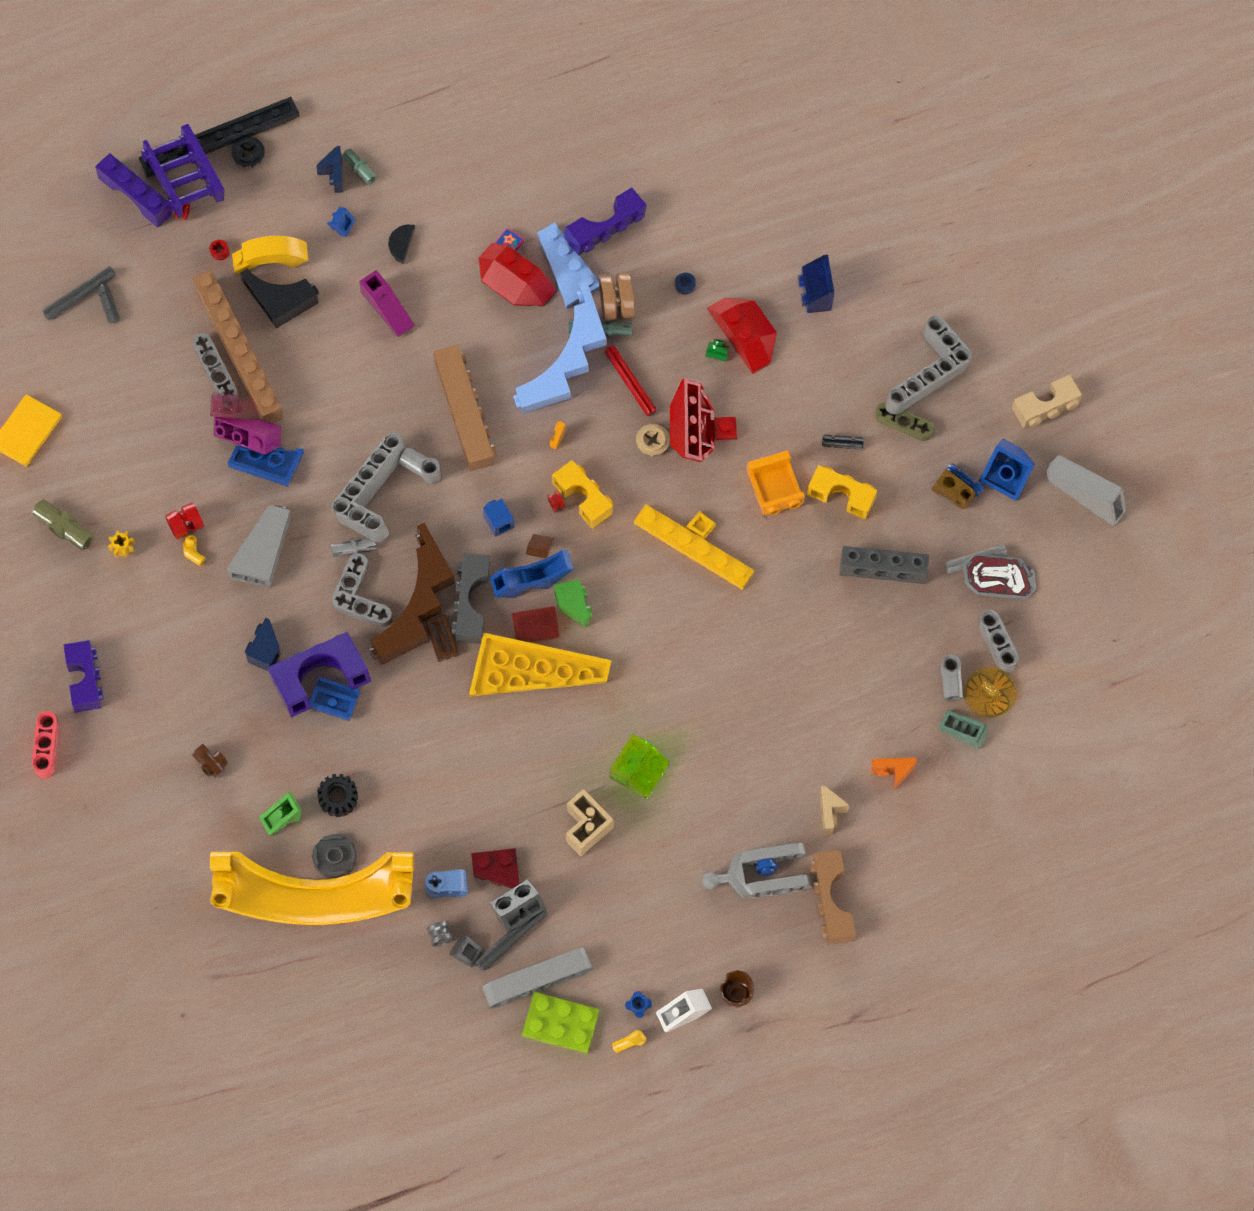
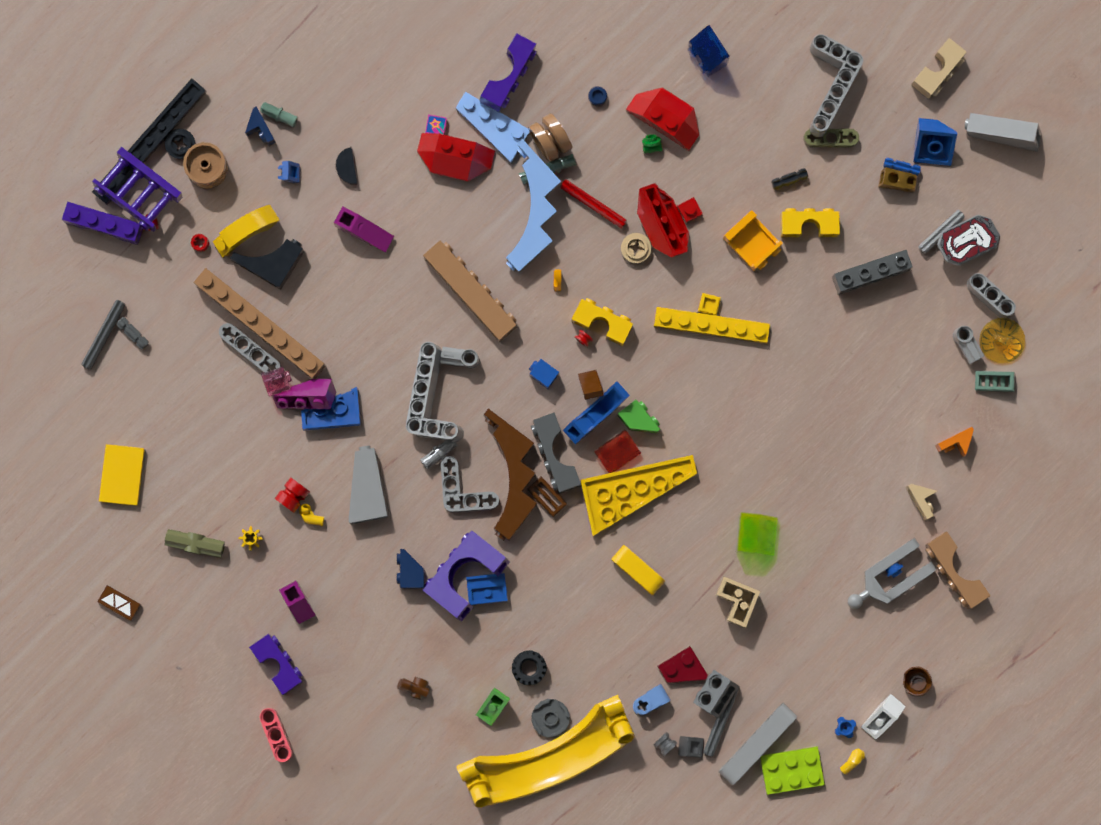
camera: 25 degrees left, 15 degrees up
(135, 624) = (297, 602): none -> magenta slope
(262, 179) = (209, 155): none -> medium nougat wheel
(498, 749) = (638, 570): none -> yellow beam

